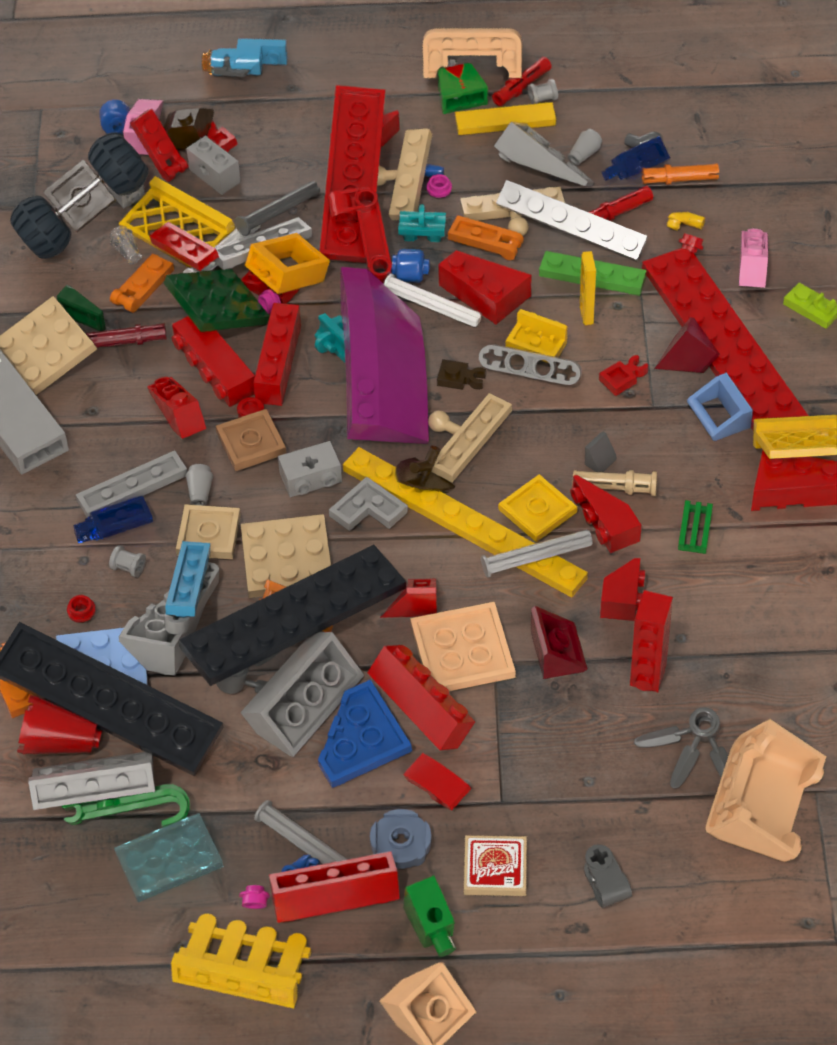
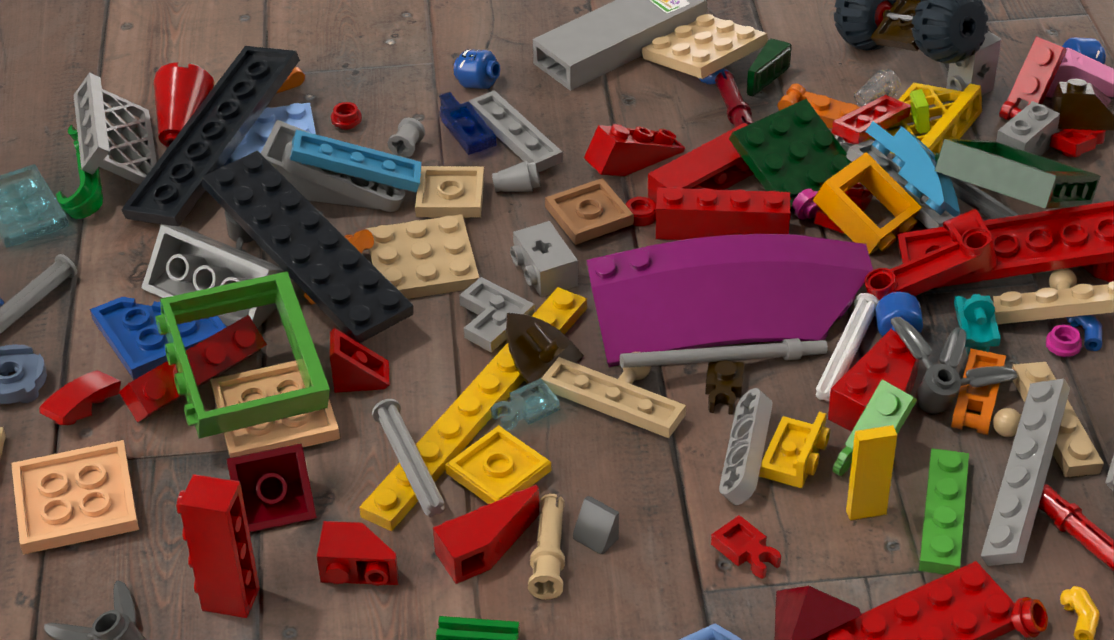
camera: 85 degrees right, 10 degrees down
(38, 507) = (476, 69): none -> blue head
(181, 215) = (920, 111): none -> lime tile
(273, 219) = (917, 168): none -> dark azure slope
(323, 151) = (1016, 173): none -> window
(430, 335) = (789, 349): none -> light grey bar
(435, 608) = (228, 299): none -> bright green window
(474, 485) = (528, 402): none -> clear light blue plate
(491, 248) = (942, 380): none -> dark grey plant
(537, 286) = (886, 408): none -> bright green hinge
(547, 776) = (73, 497): none -> light nougat plate

